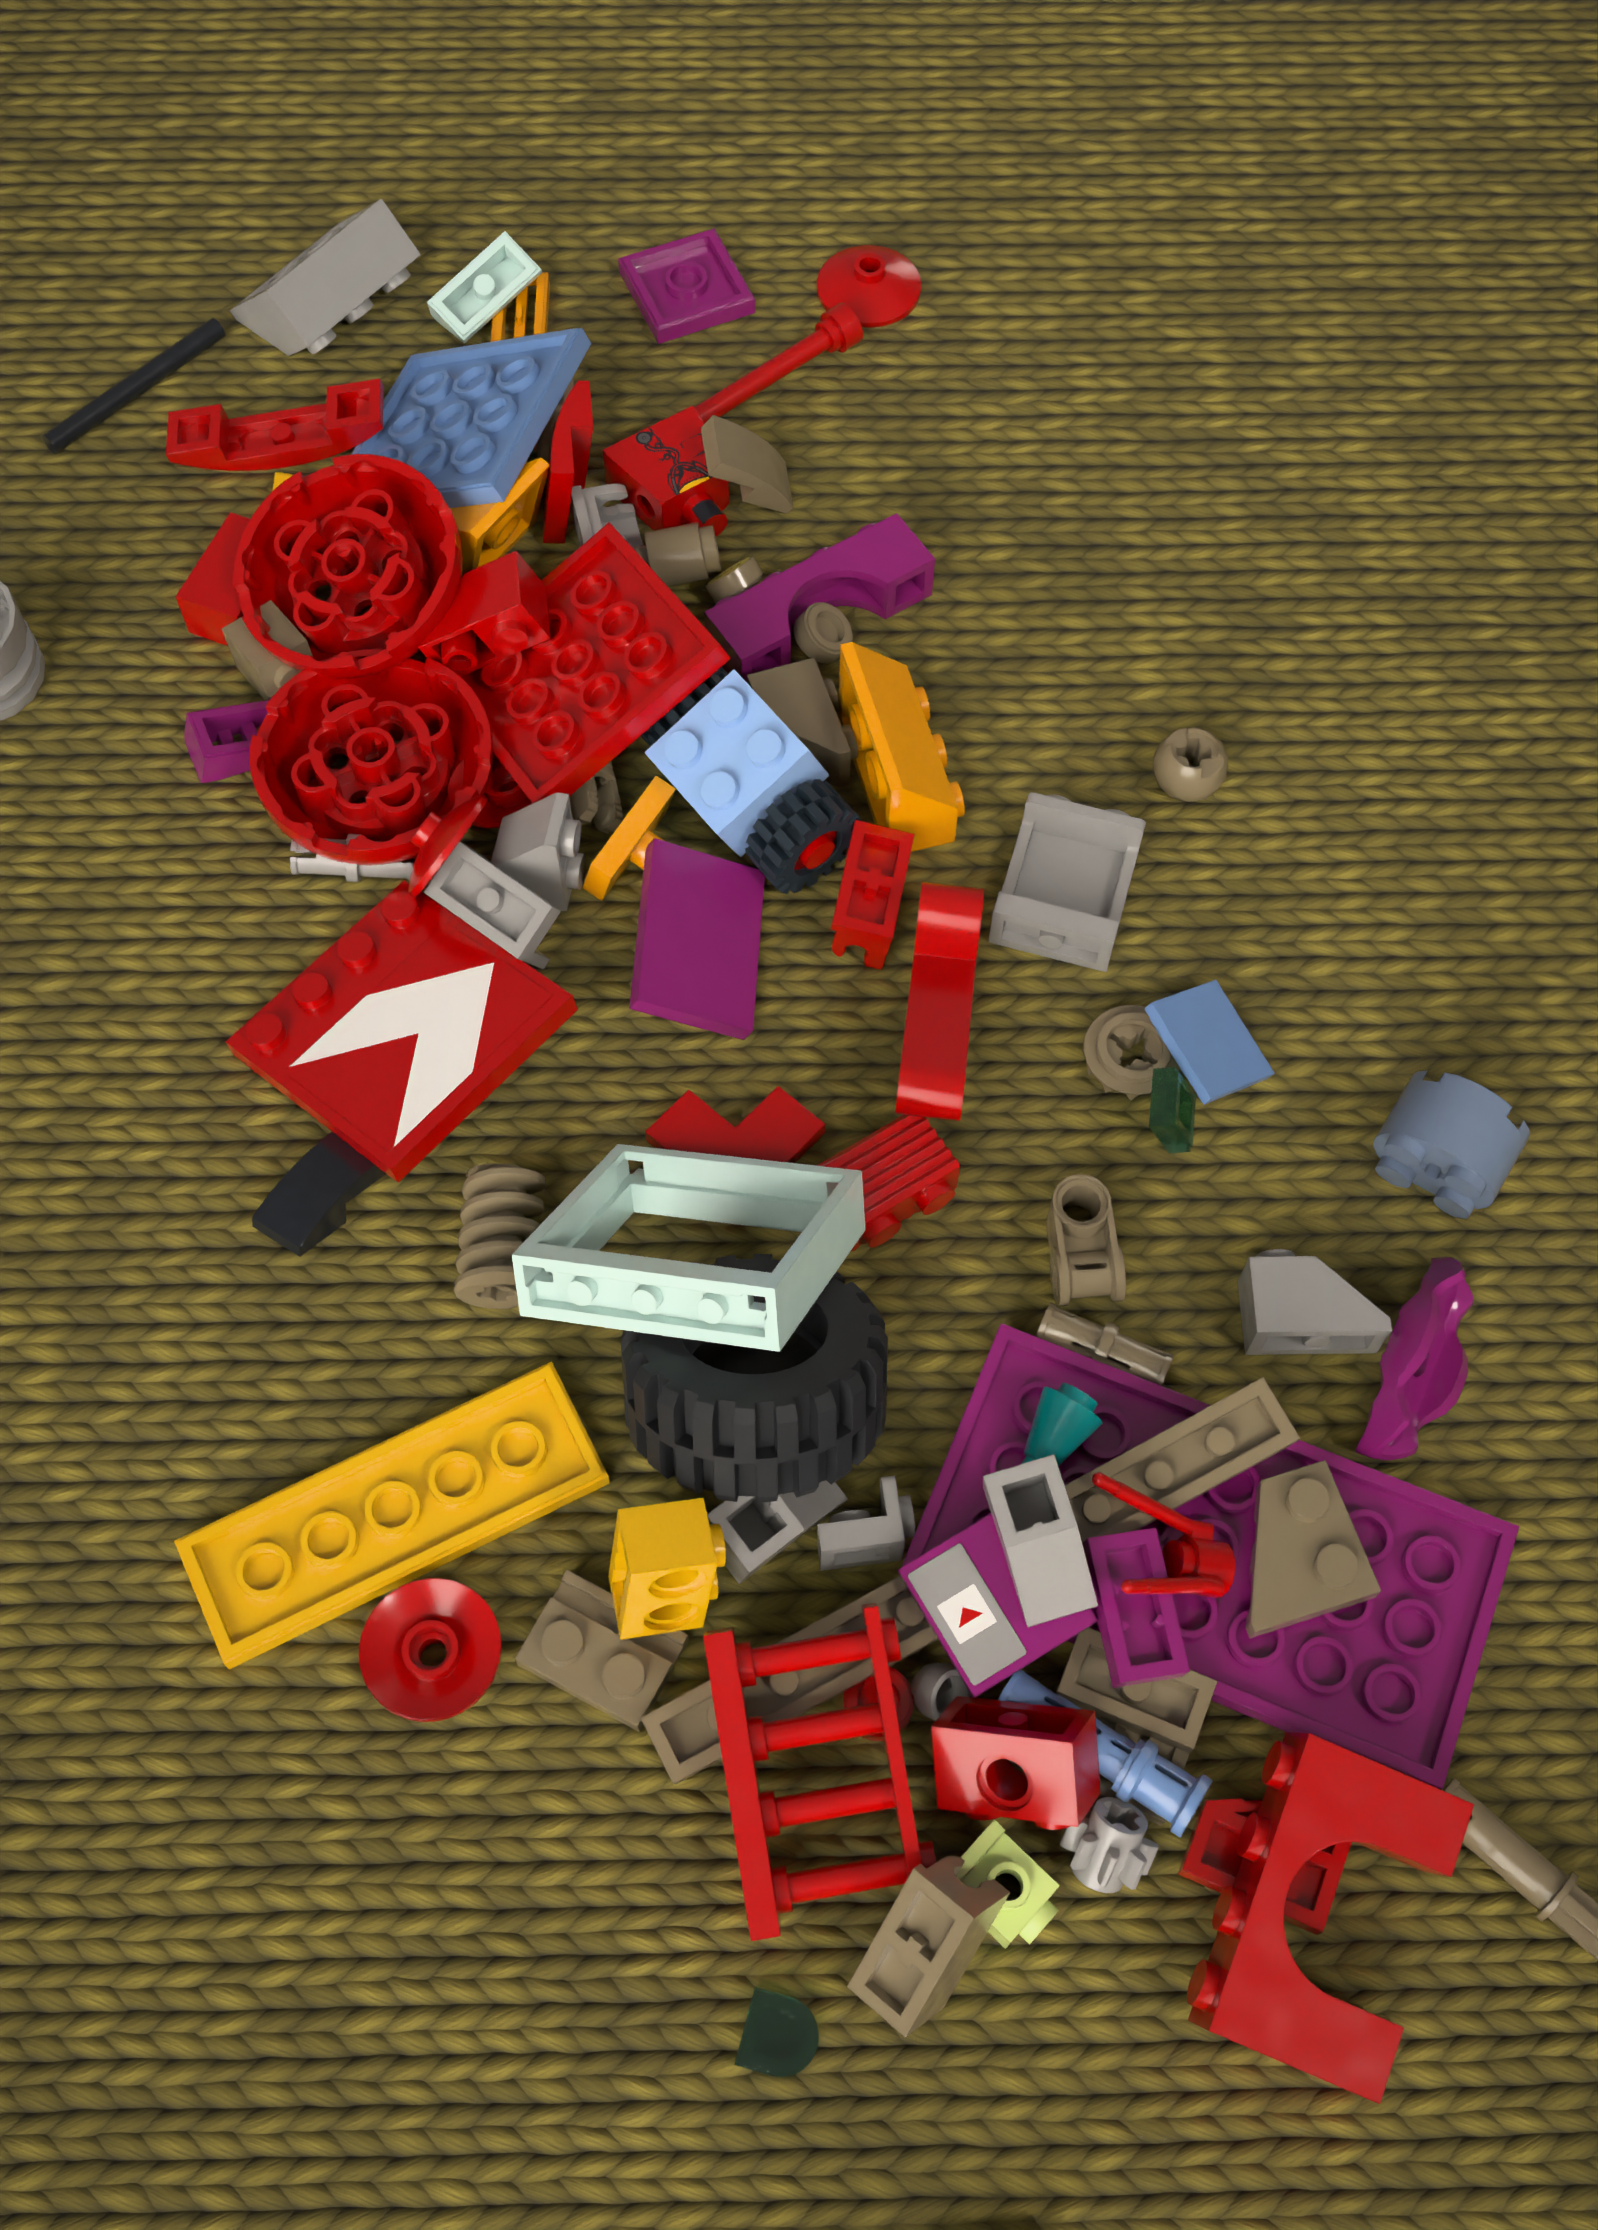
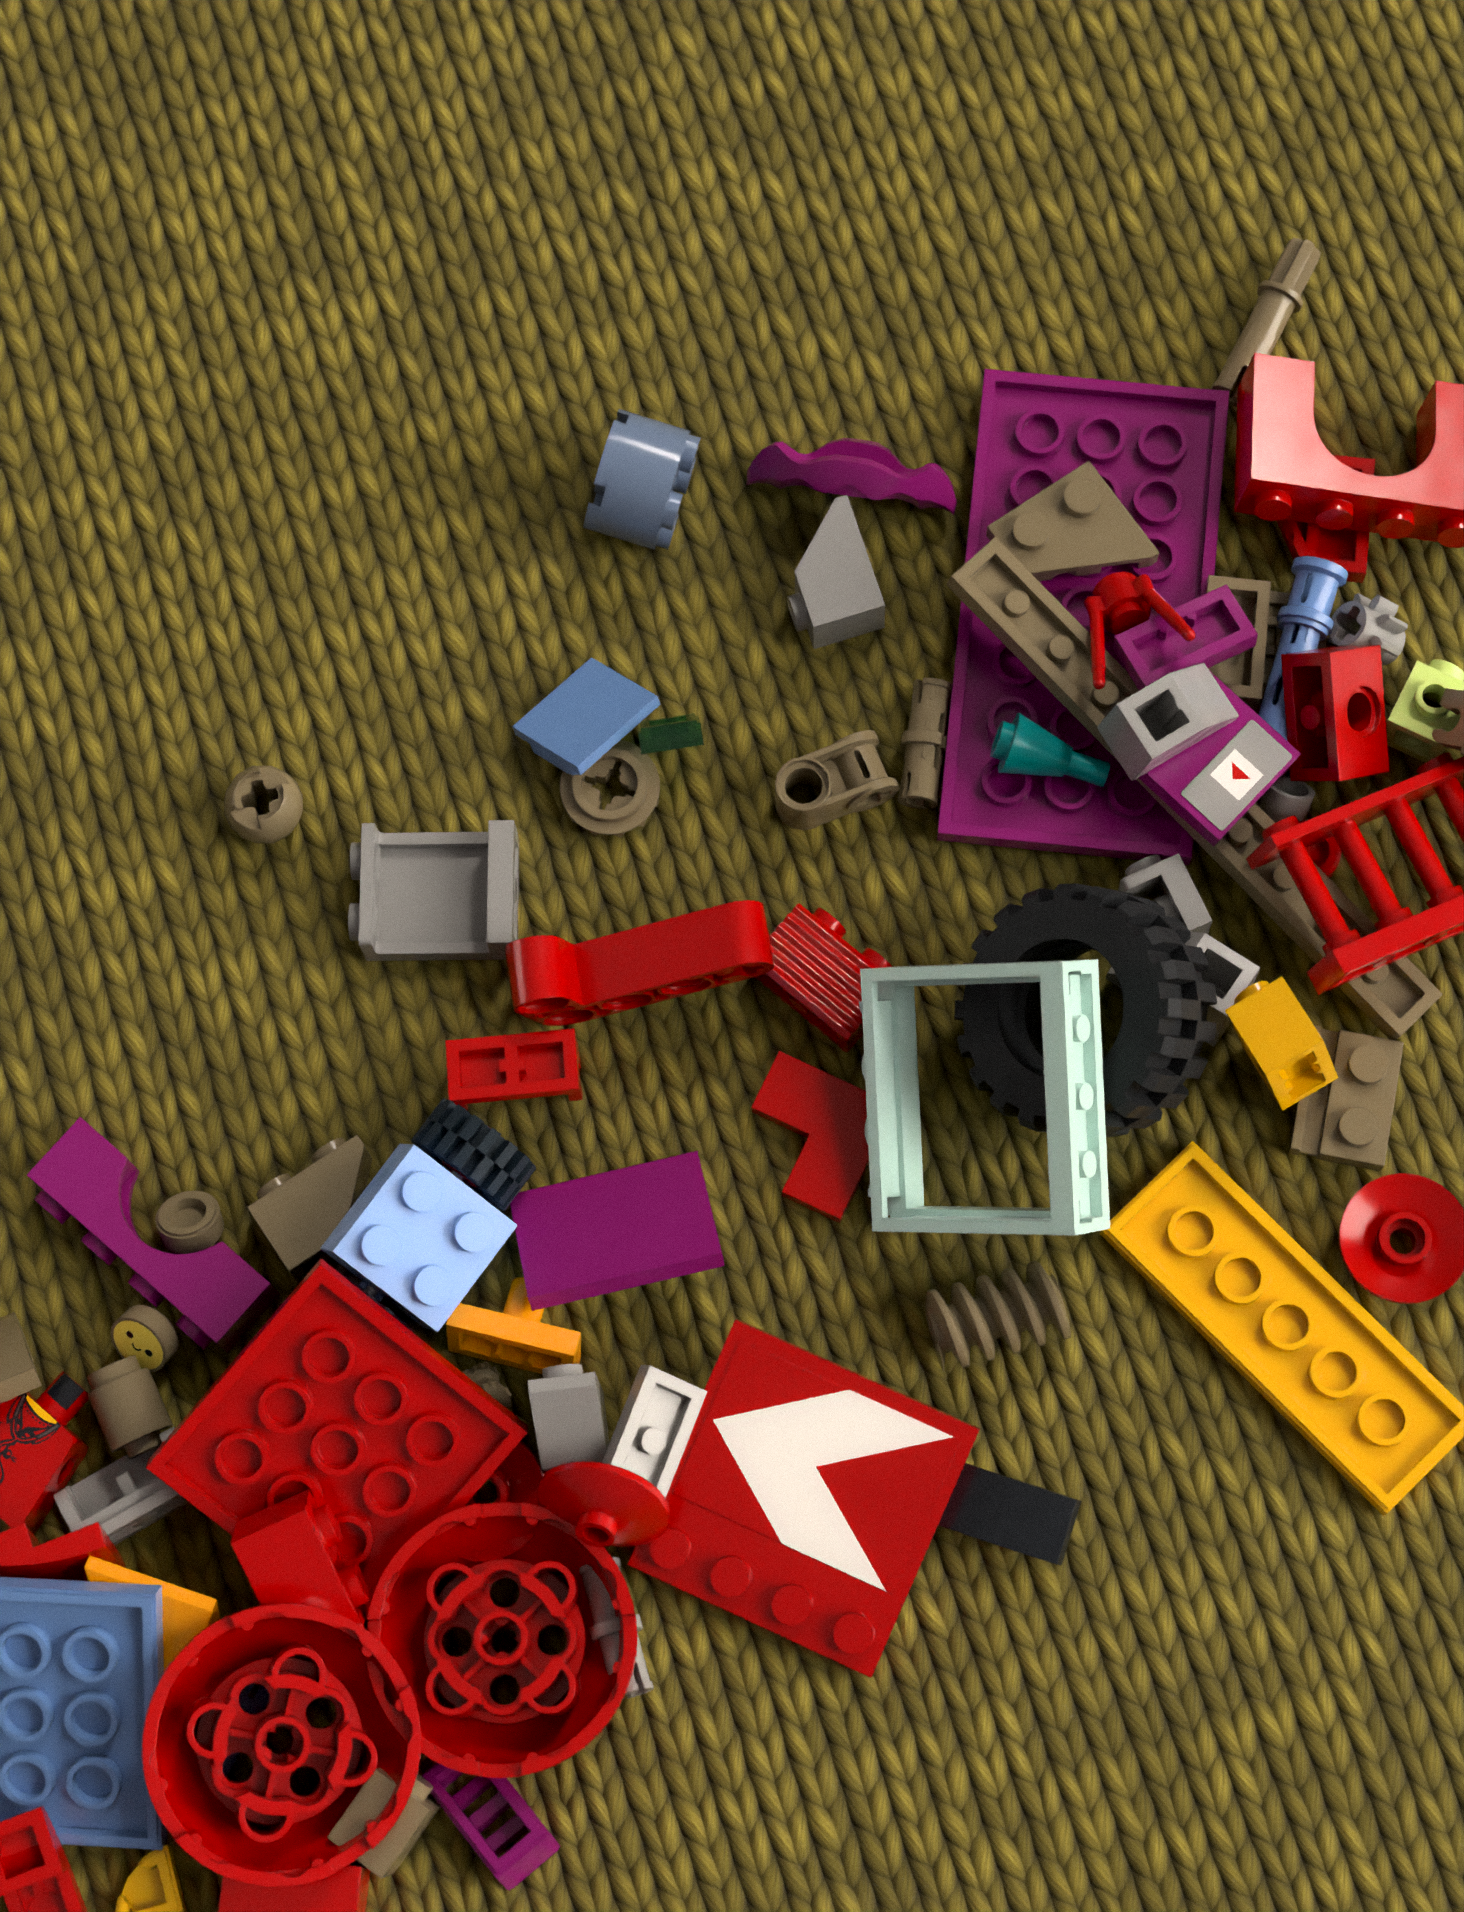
camera: 100 degrees left, 10 degrees up
(897, 753) = (338, 1092): light orange slope -> none

